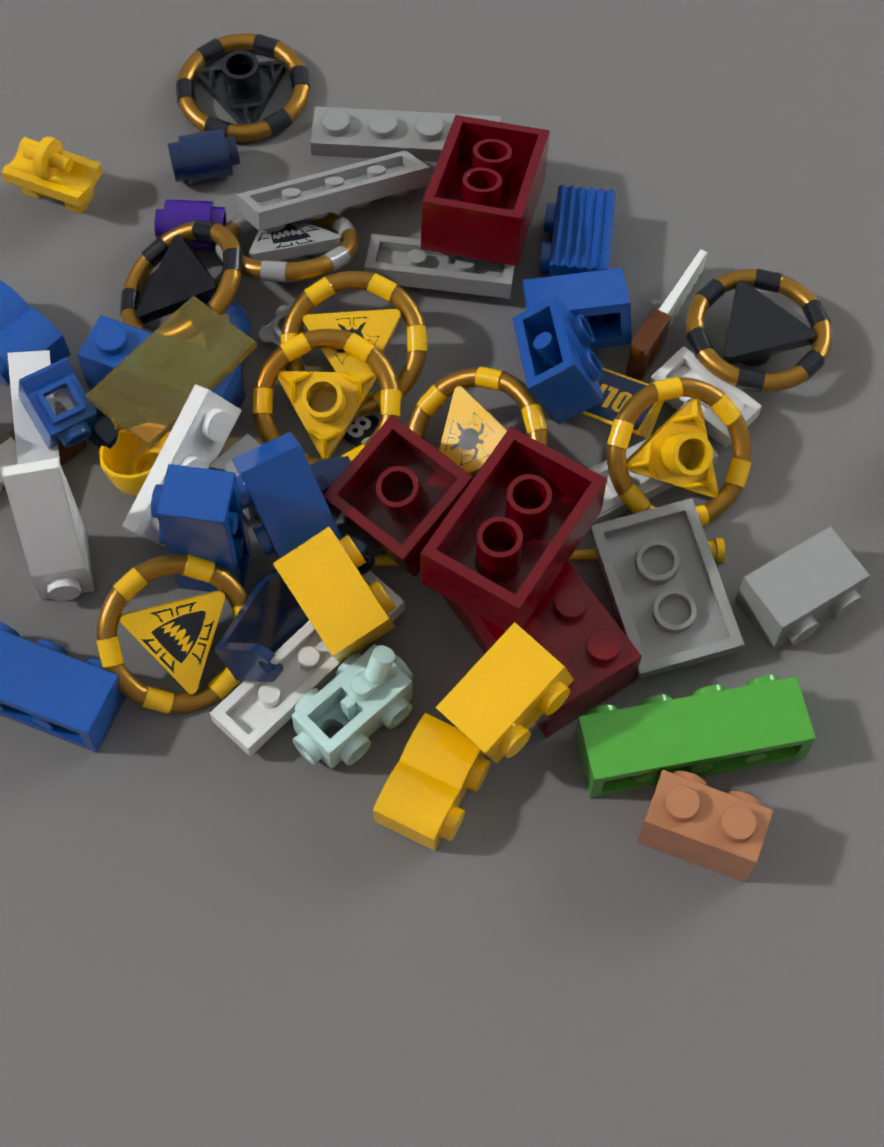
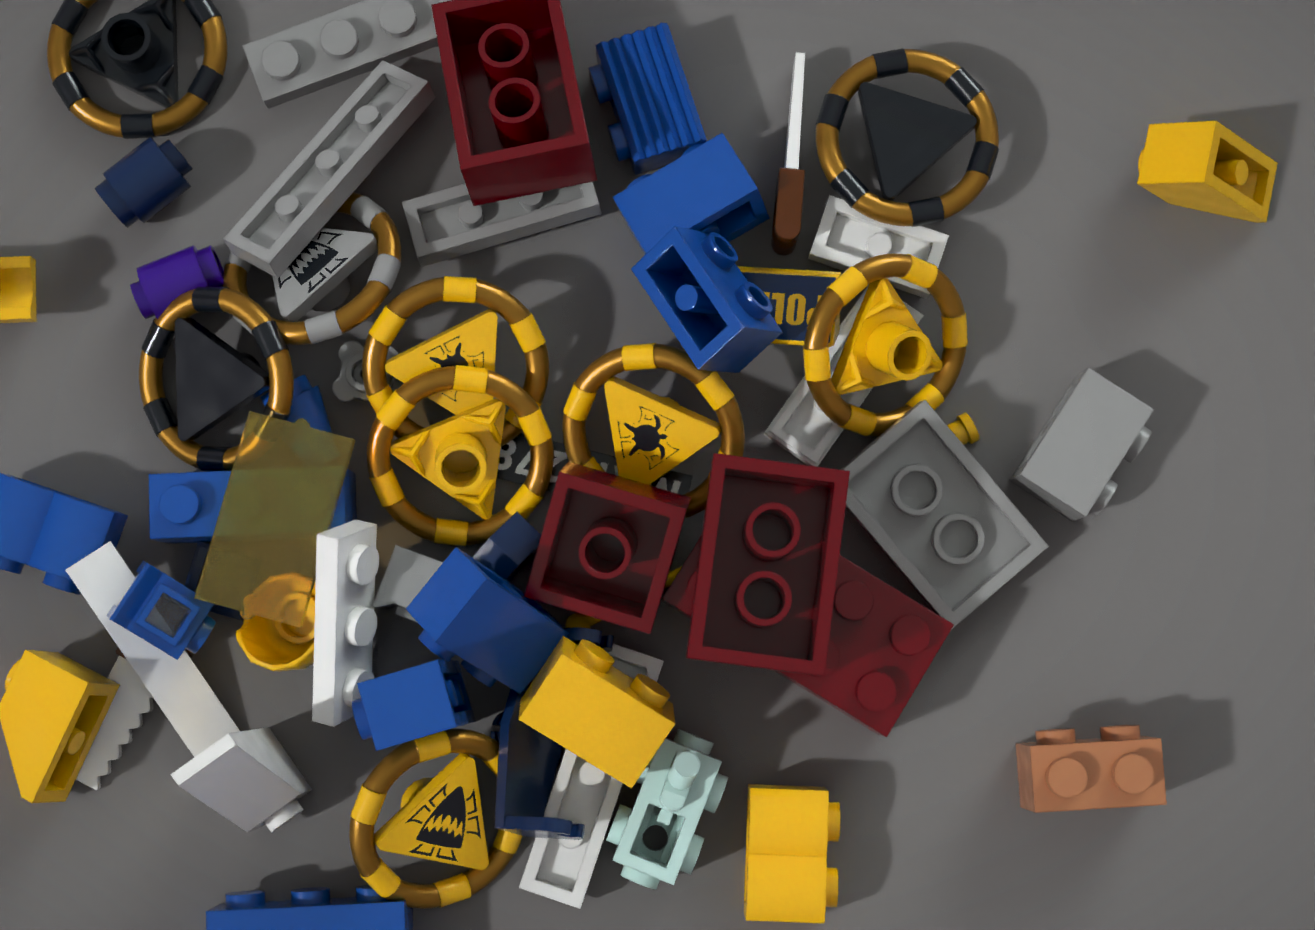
camera: 25 degrees left, 20 degrees up
(507, 694) = (839, 751): yellow brick -> none
(697, 734) = (1036, 674): bright green brick -> none

